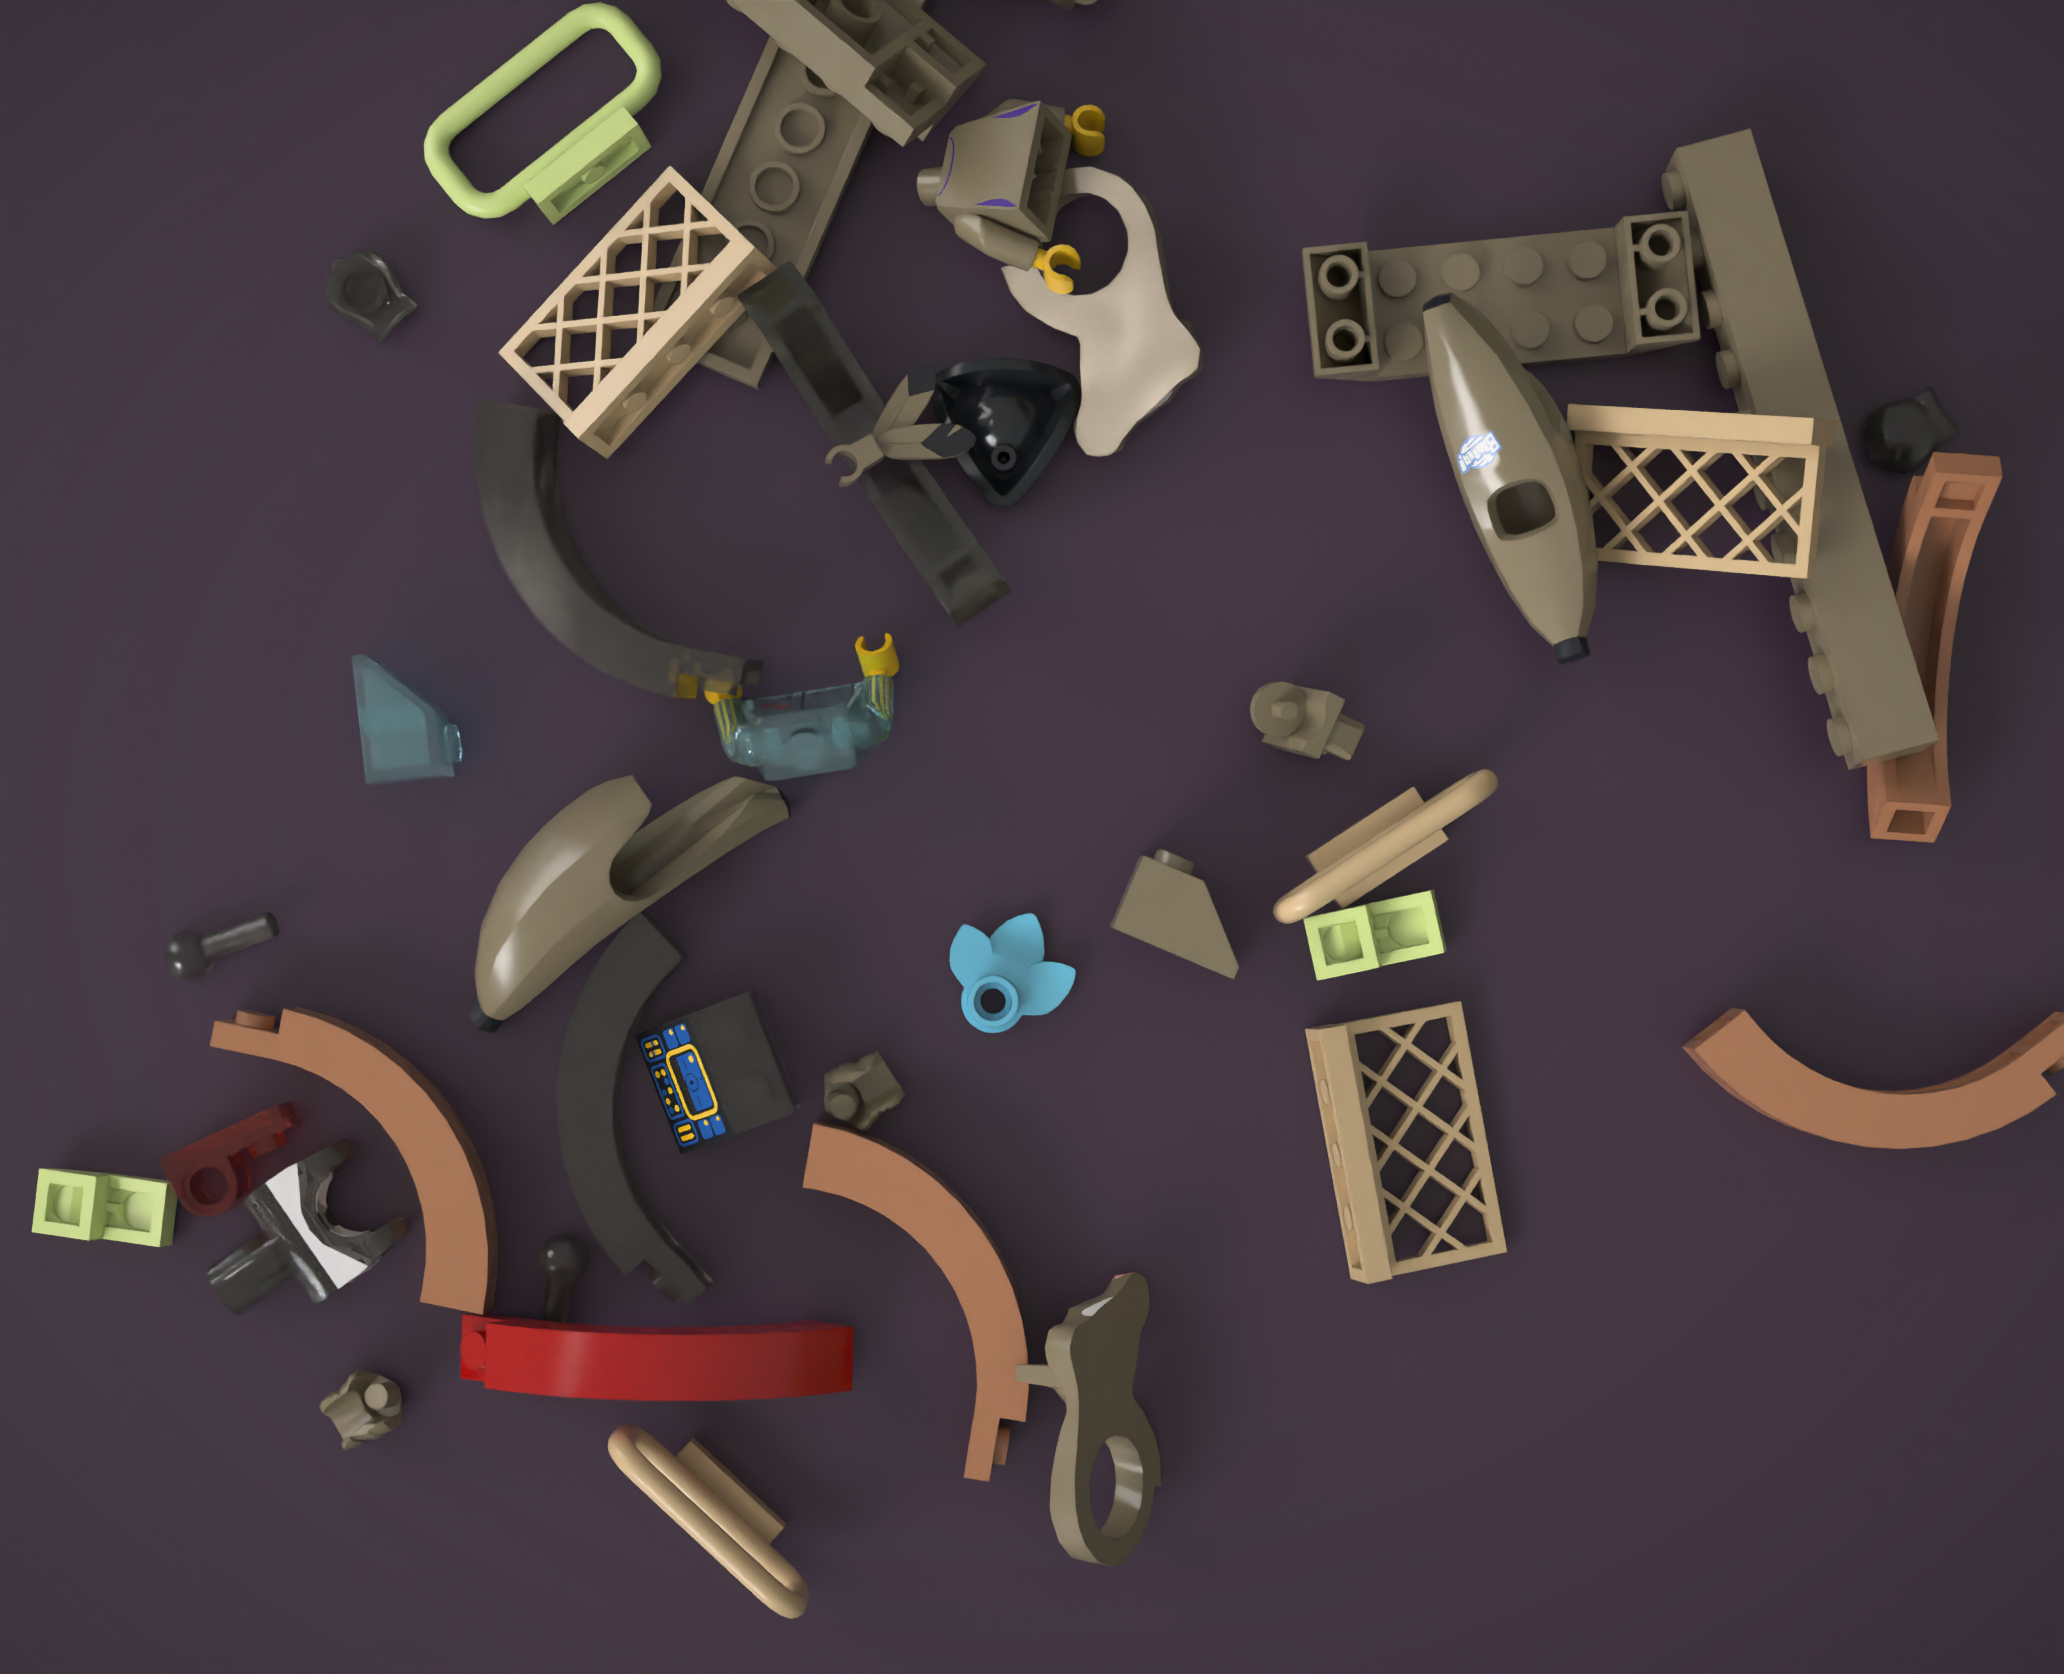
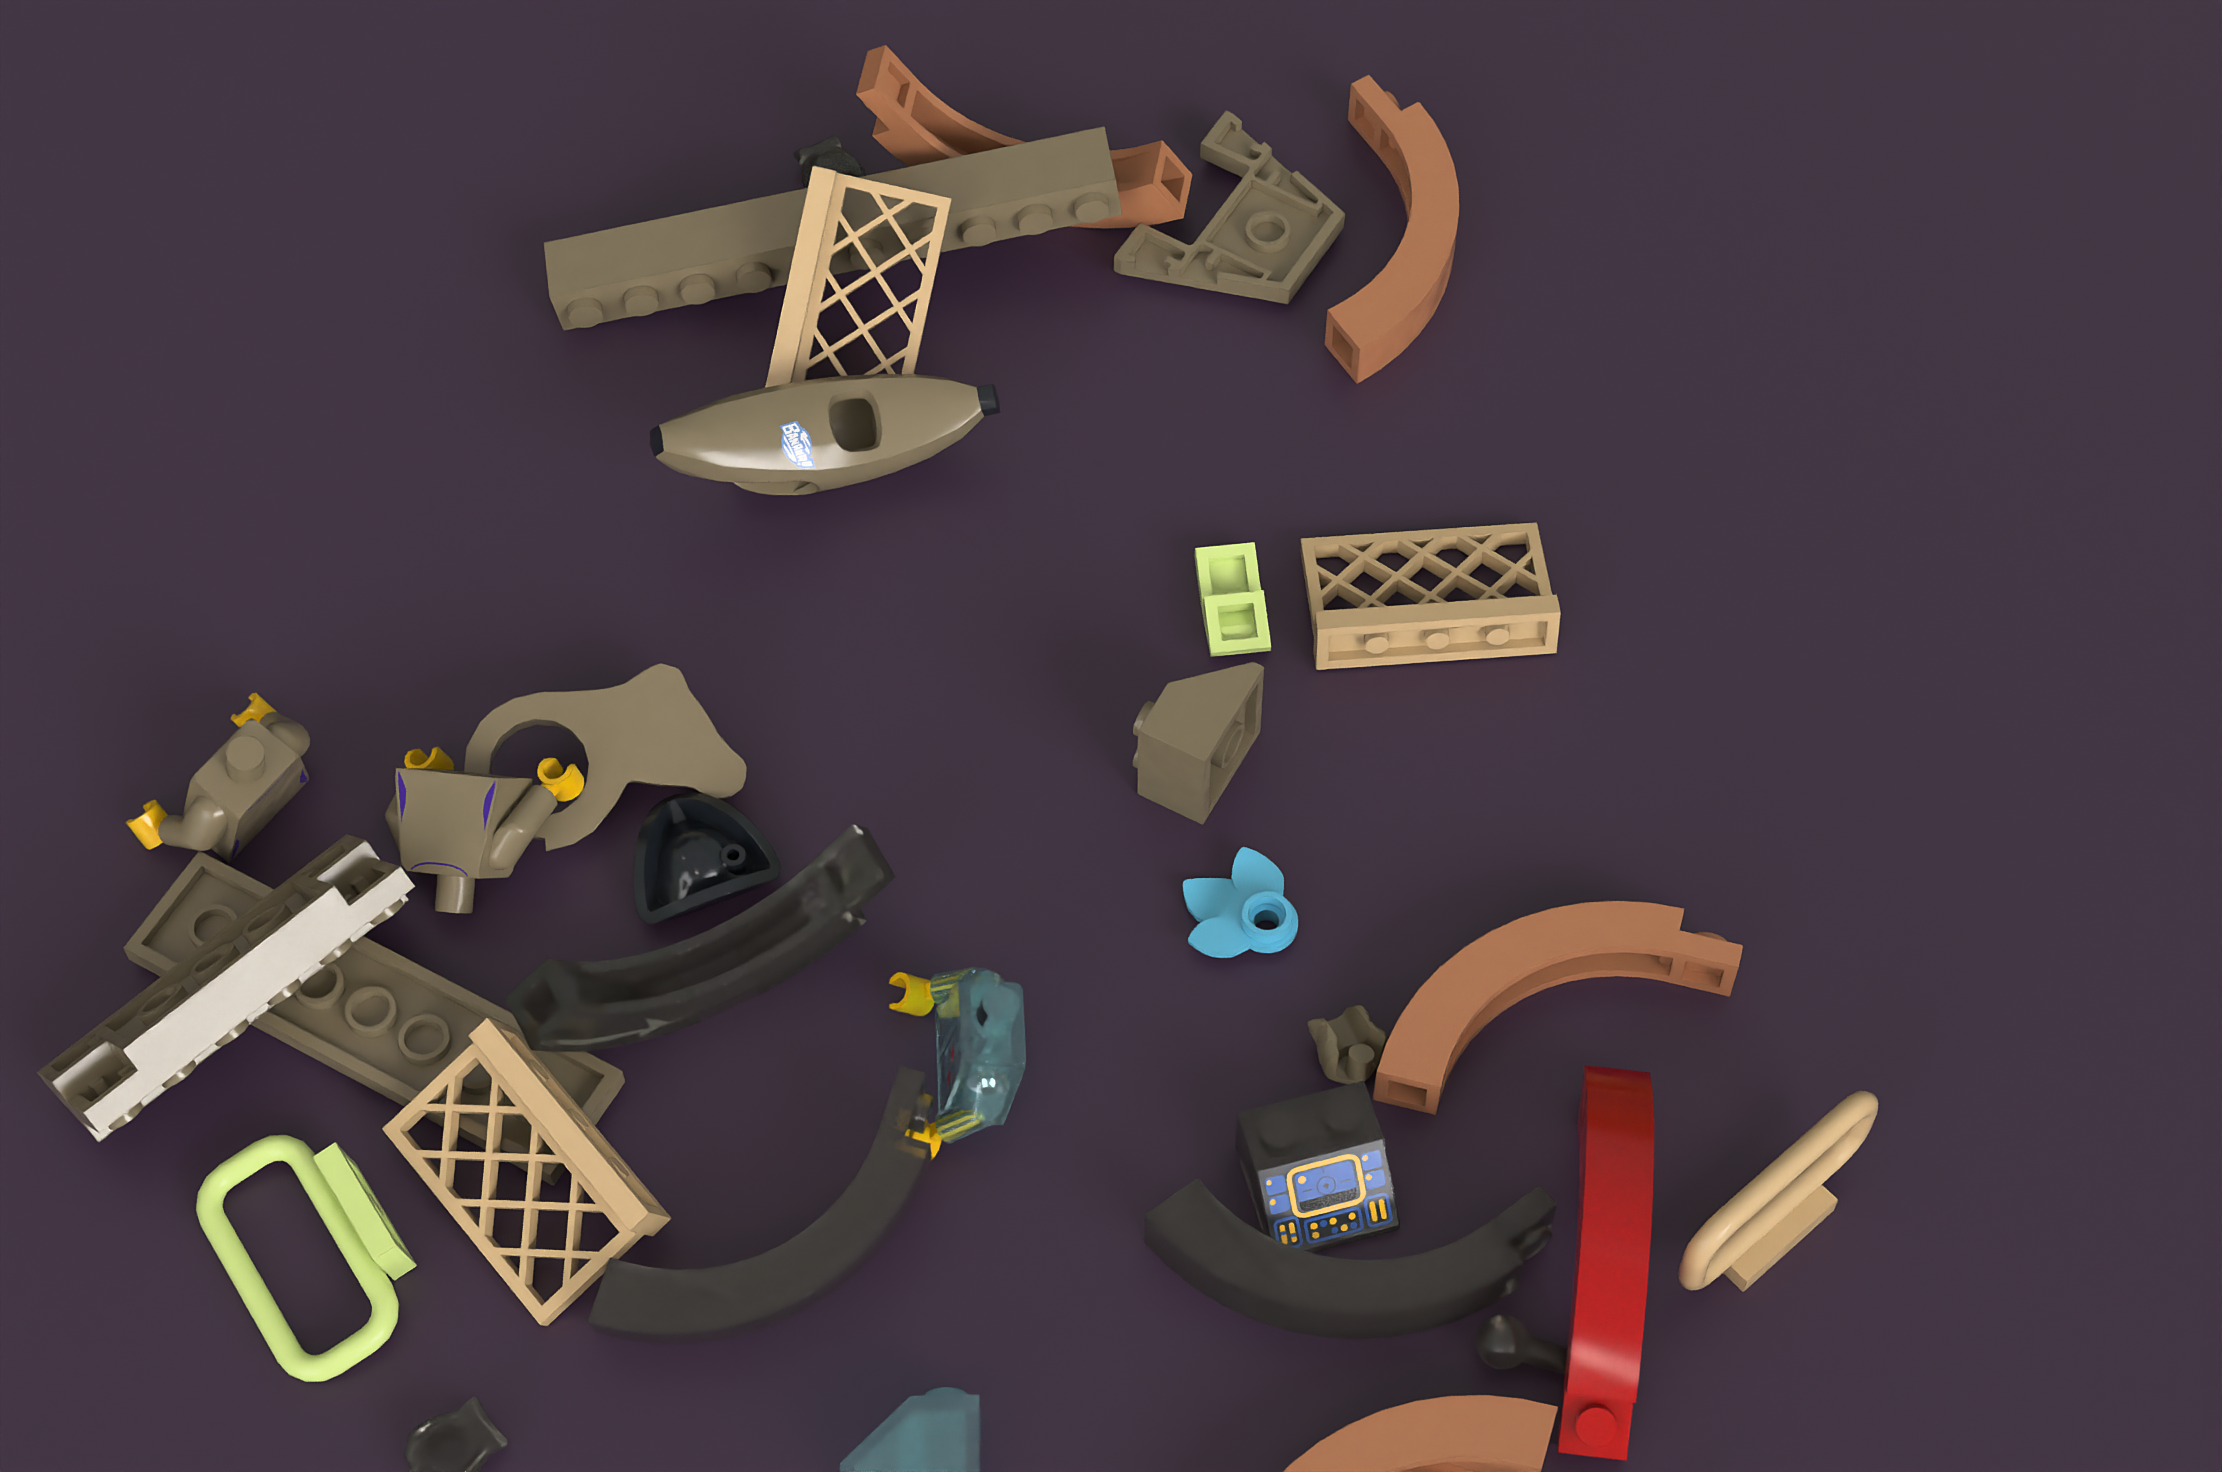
camera: 80 degrees left, 30 degrees down
(595, 873) = (1108, 1264): dark tan piece -> none
(897, 435) = (693, 938): dark tan piece -> none
(1094, 1373) = (1642, 846): dark tan animal -> none
(1304, 721) = (1026, 618): dark tan hips -> none
(1381, 846) = (1150, 571): tan bar -> none
(1544, 293) = (662, 362): dark tan slope -> none
(1864, 928) = (1259, 239): none -> dark tan wing

